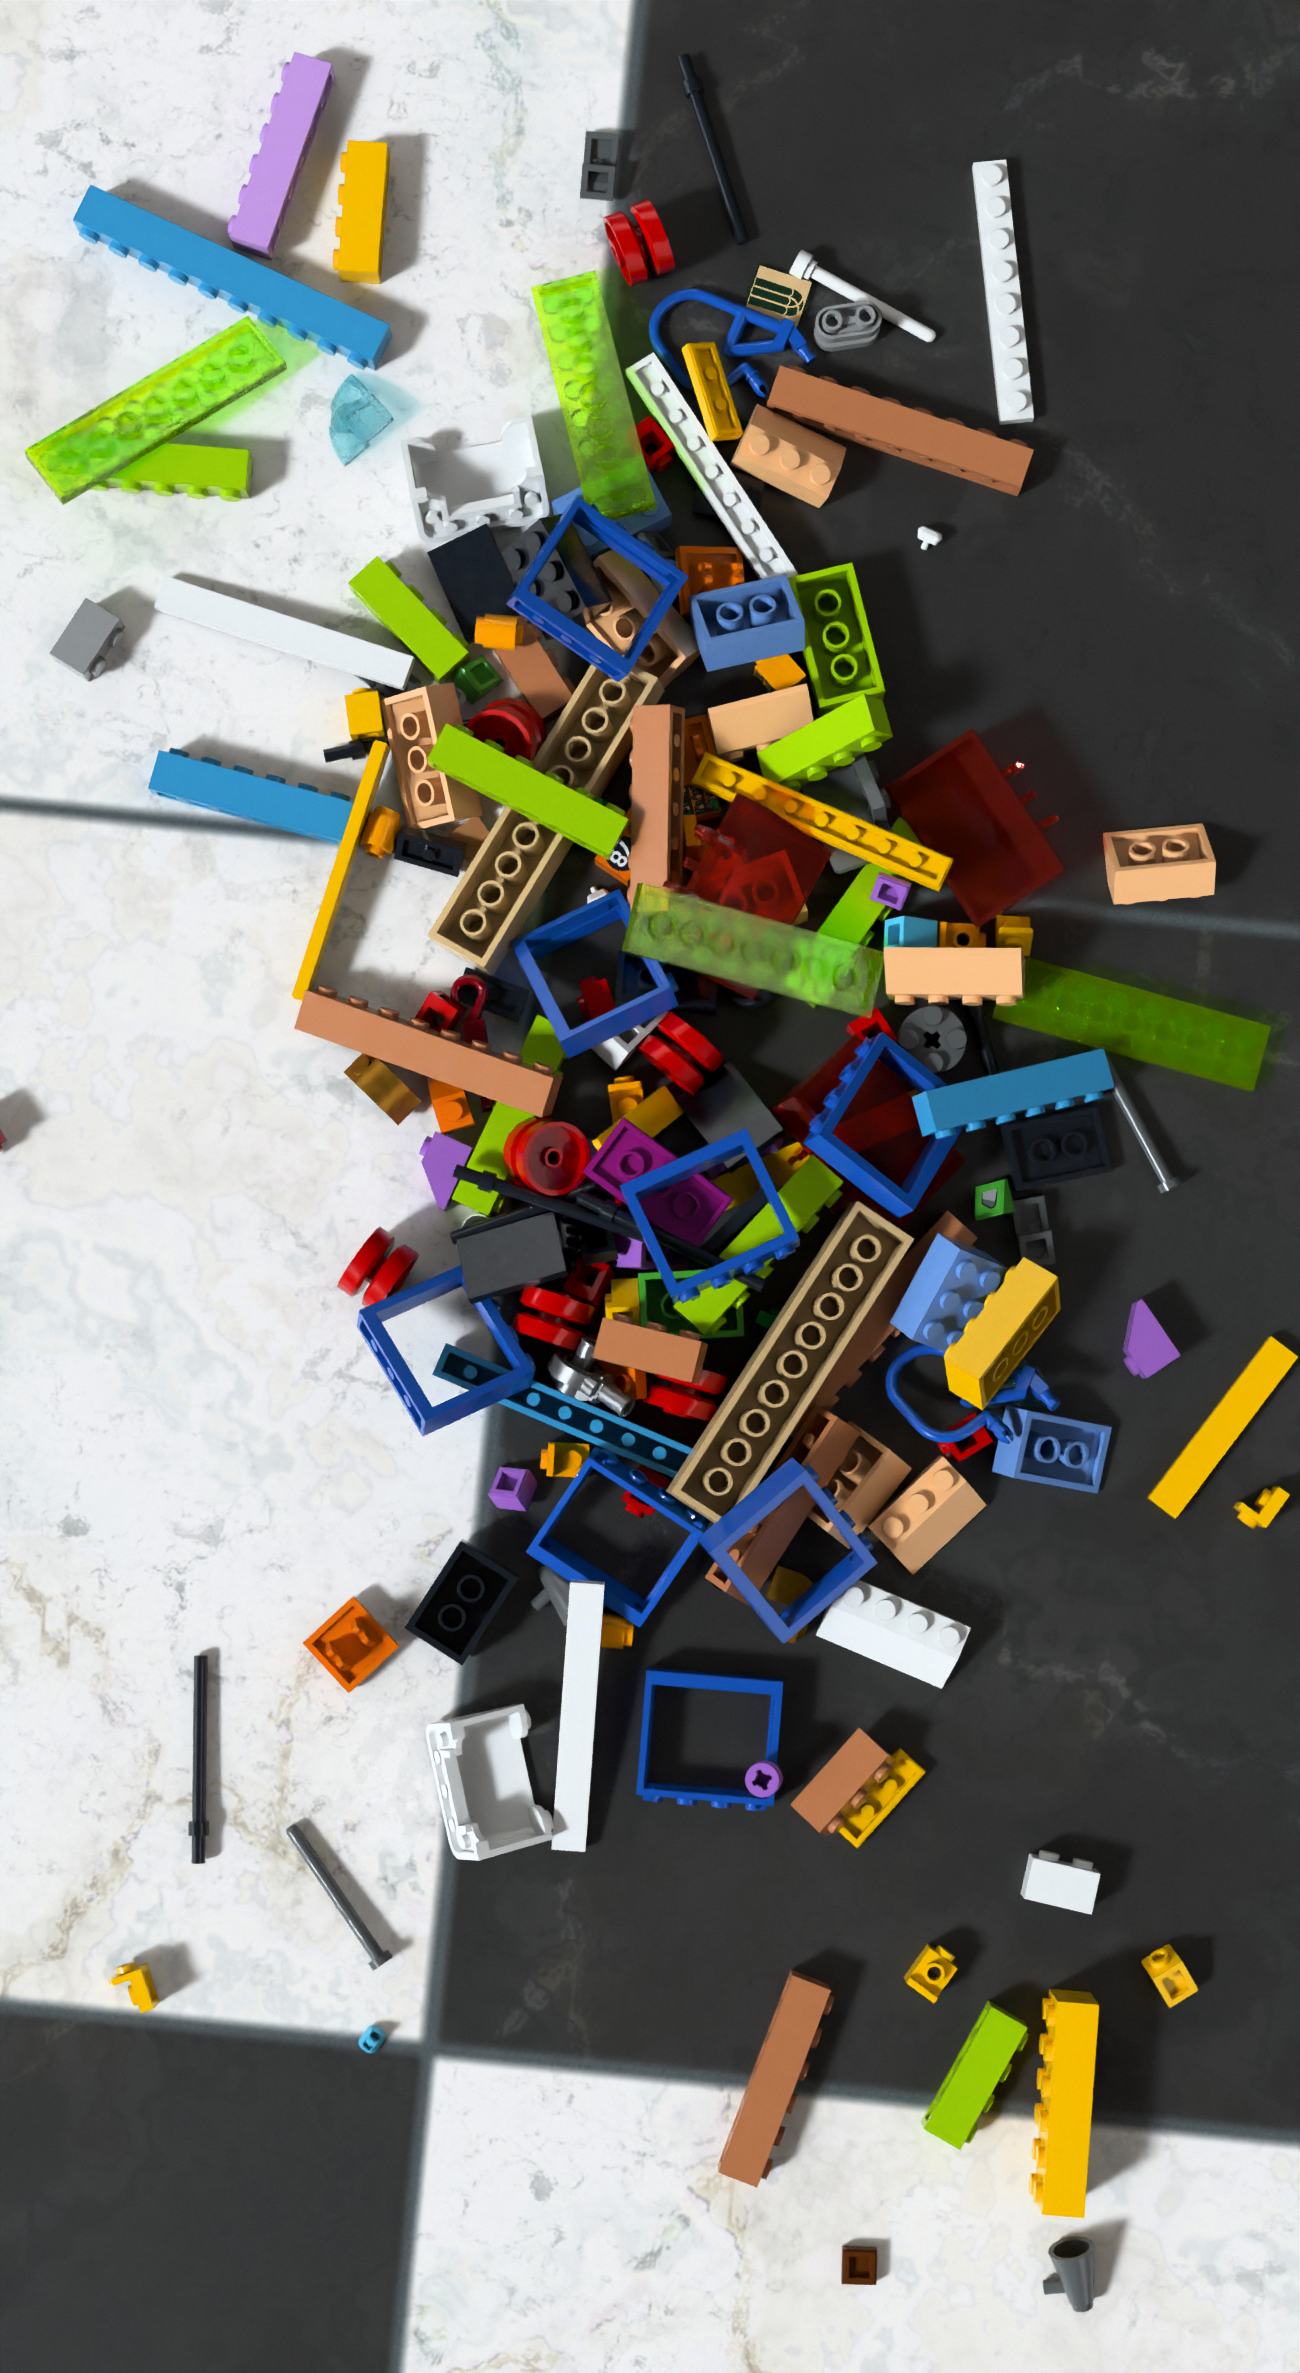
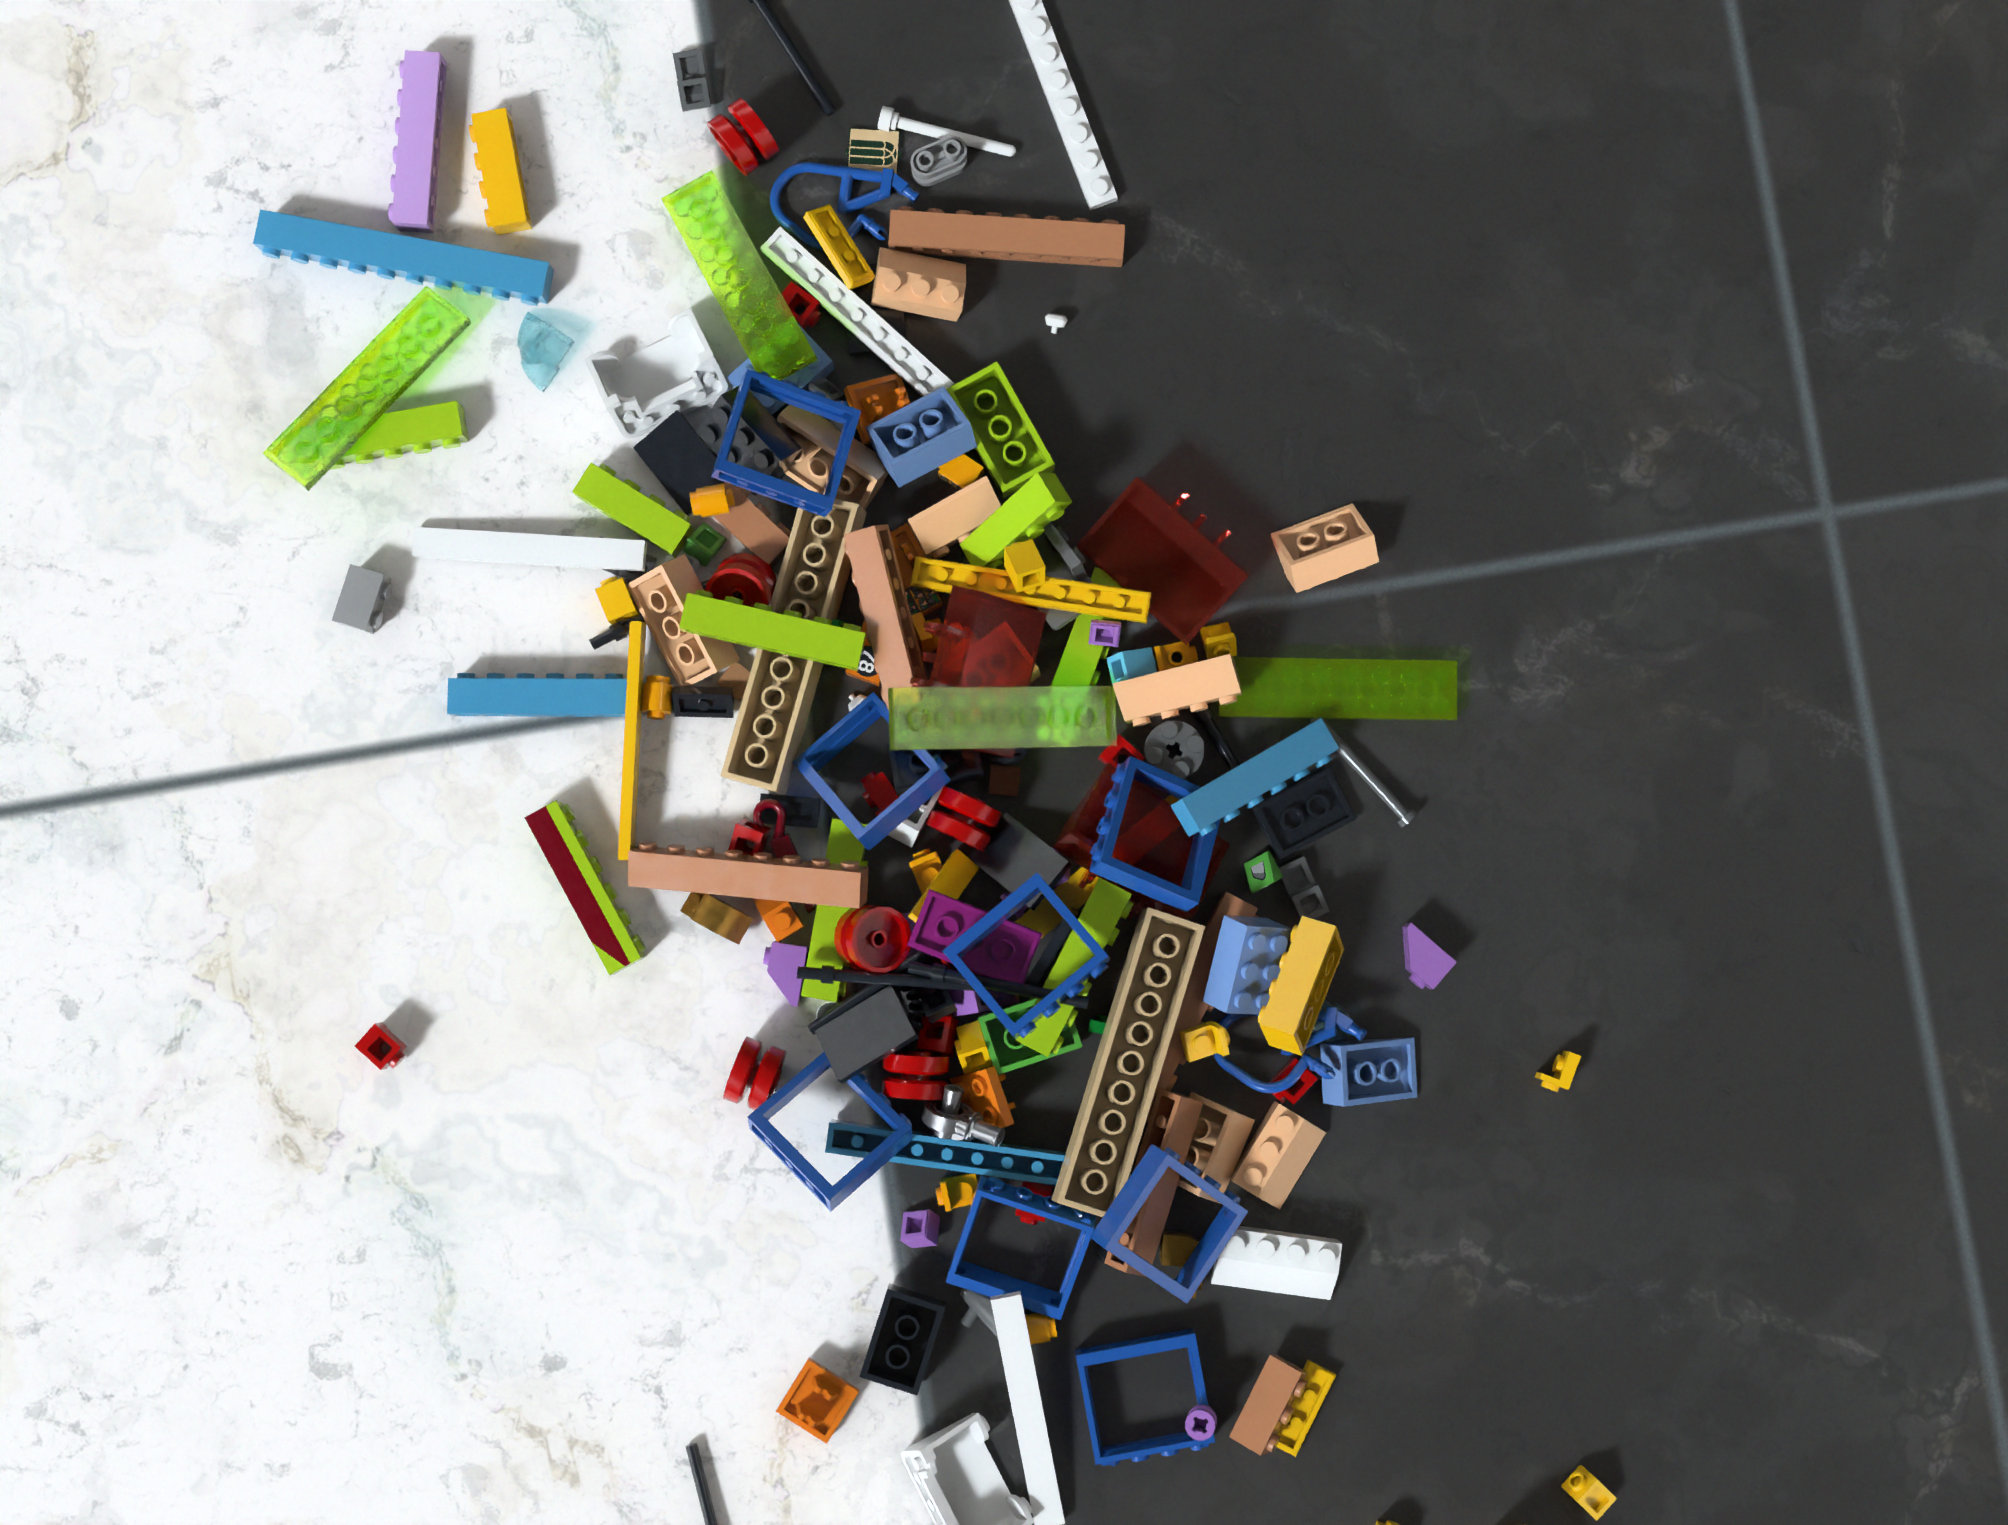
camera: 20 degrees left, 0 degrees up
(247, 1018) = (585, 887): none -> brick
(650, 1348) = (1006, 1082): nougat brick -> none
(684, 1397) = (1044, 1107): red wheel -> none
(736, 1025) = (1004, 780): none -> reddish brown tile
(822, 792) = (1024, 565): none -> yellow brick
(880, 1366) = (1205, 1041): none -> yellow bracket
(1060, 1882) = (1475, 1438): white brick -> none
(1222, 1427) = (1507, 1012): yellow tile -> none

